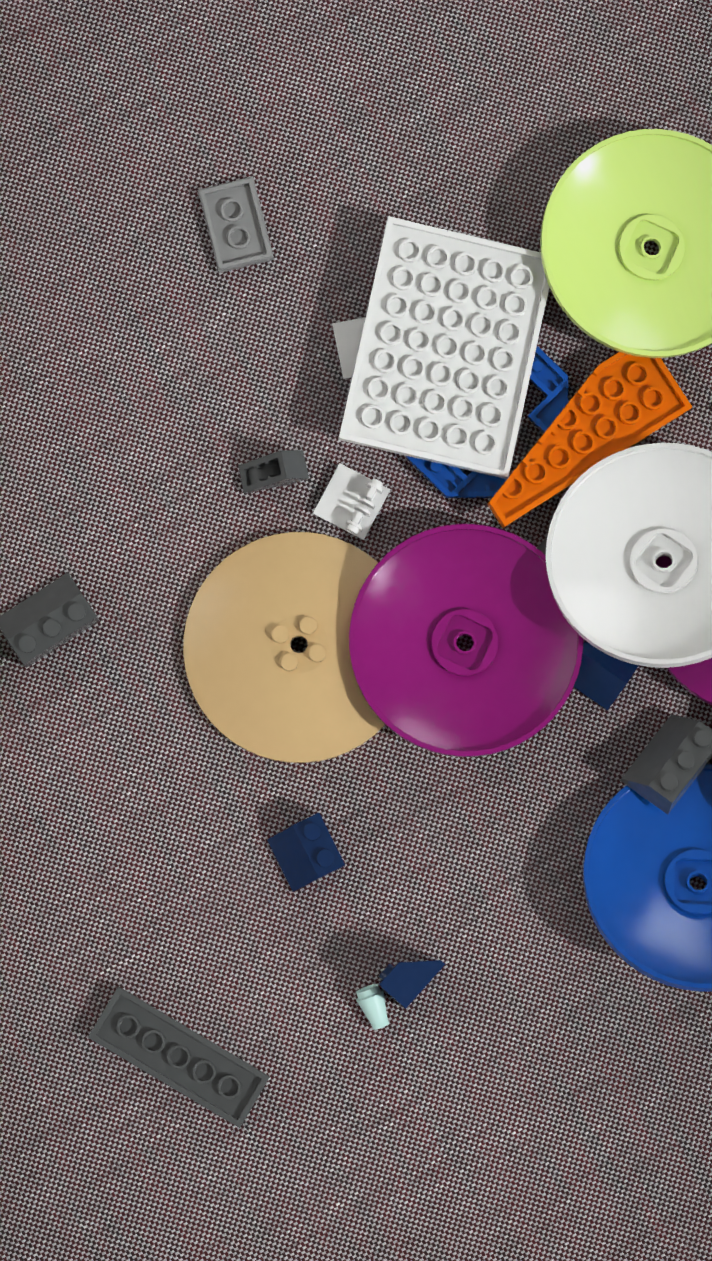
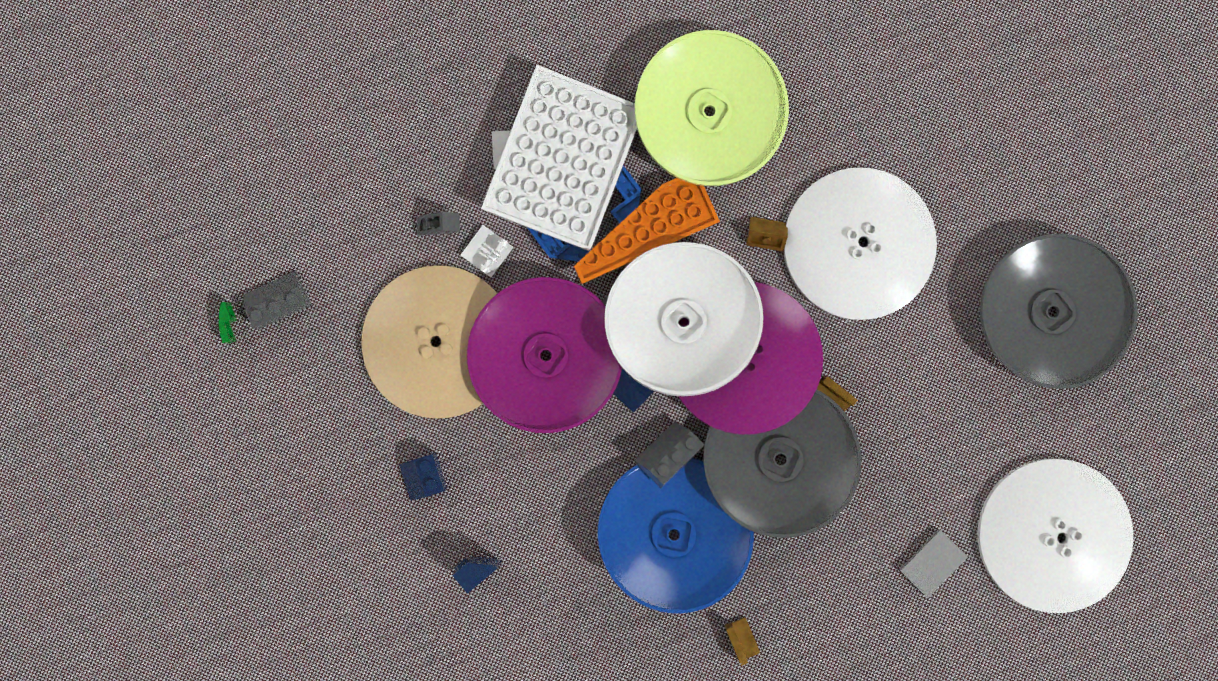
camera: 10 degrees right, 5 degrees up
(179, 1057) = (320, 597): dark grey plate -> none
(235, 224) = (438, 56): light grey tile -> none
(373, 1005) = (449, 583): light aqua cone -> none

